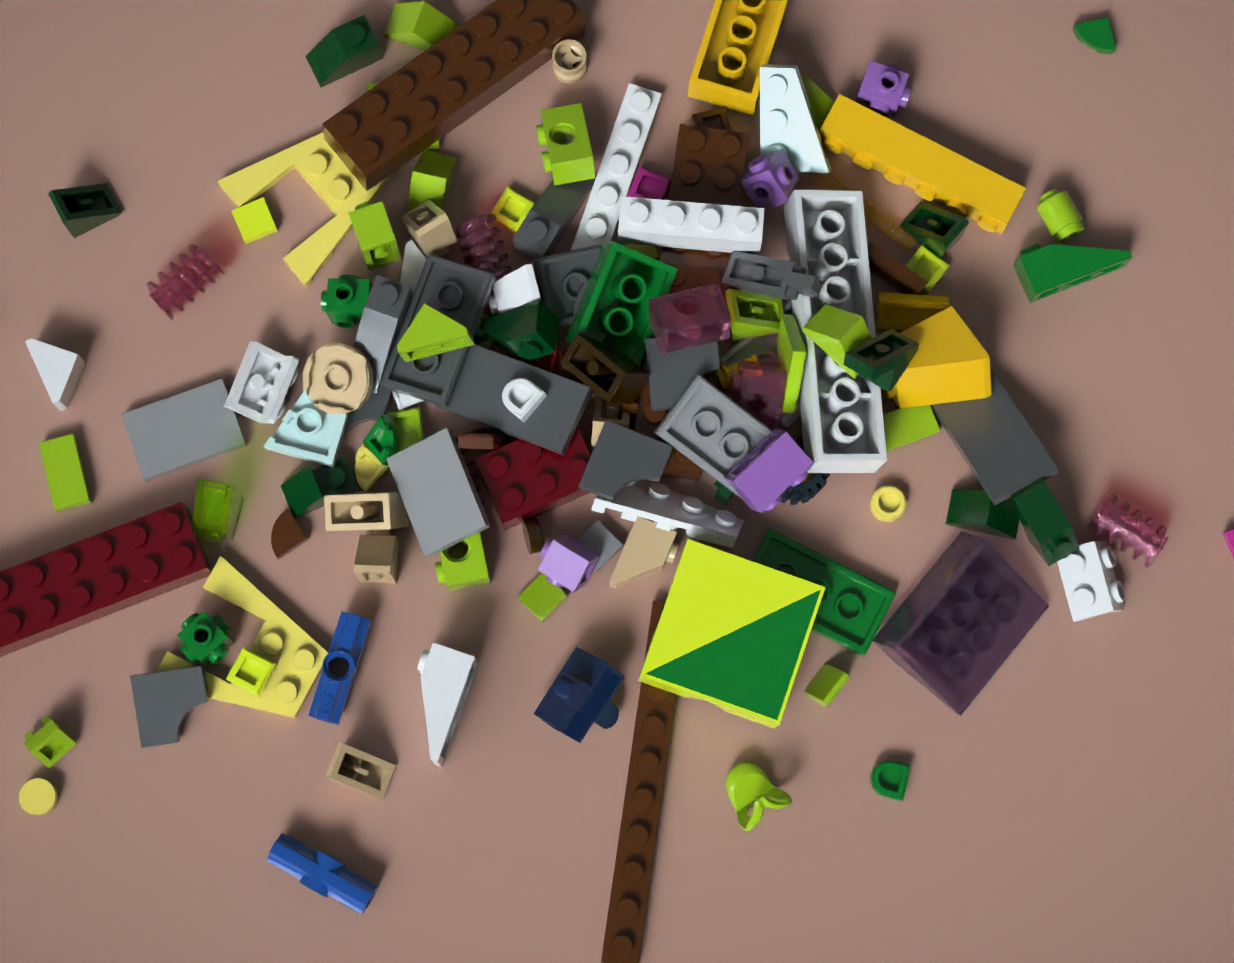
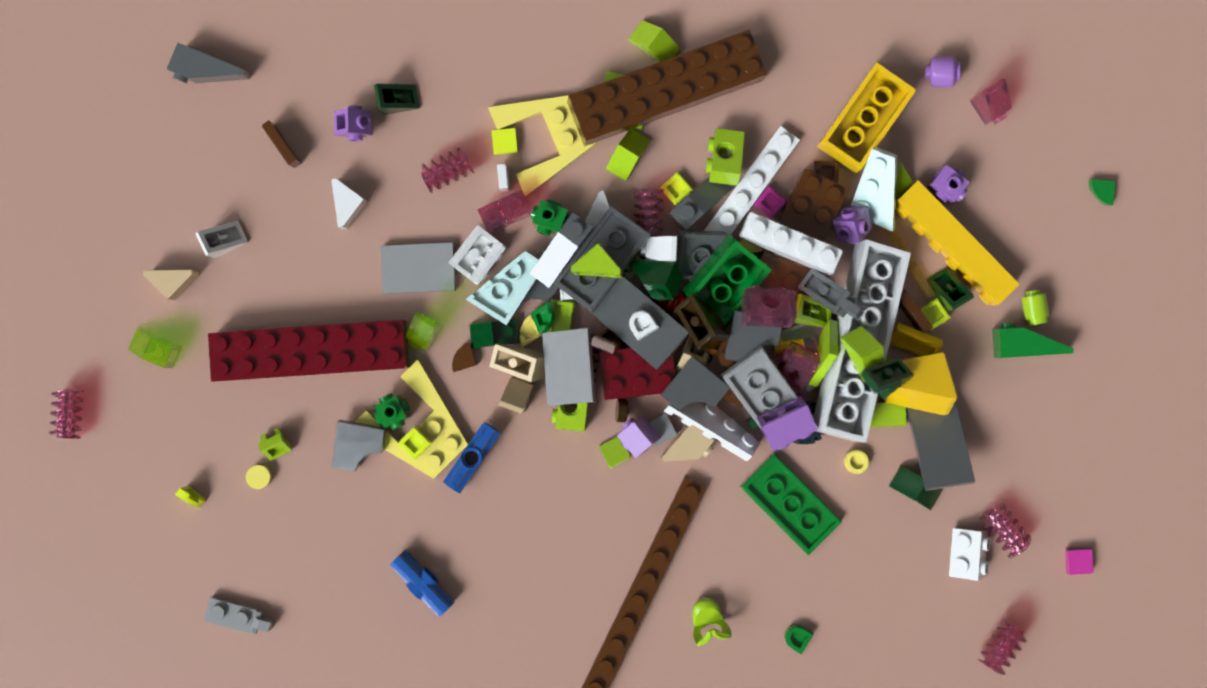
camera: 20 degrees right, 10 degrees up
(34, 257) = (353, 123): none -> medium lavender brick
(65, 473) = (333, 272): lime tile -> none
(267, 268) = (503, 177): none -> white tile
(283, 312) = (505, 211): none -> clear pink brick
(338, 378) = (527, 271): tan tile -> none
(344, 51) = (598, 44): dark green slope -> none
(360, 770) = (465, 526): tan slope -> none
(374, 234) = (580, 179): lime brick -> none
(429, 229) = (617, 186): tan slope -> none
(445, 687) = (533, 495): white slope -> none
(569, 54) = (748, 95): tan wheel -> none
(581, 696) = (619, 525): dark blue piece -> none
(732, 633) = (728, 519): tile -> none
(826, 685) = (778, 566): lime slope -> none
(961, 621) = (877, 553): clear purple slope -> none
(1044, 522) = (953, 511): dark green slope -> none
(1183, 694) = (1003, 647): none -> clear pink piece

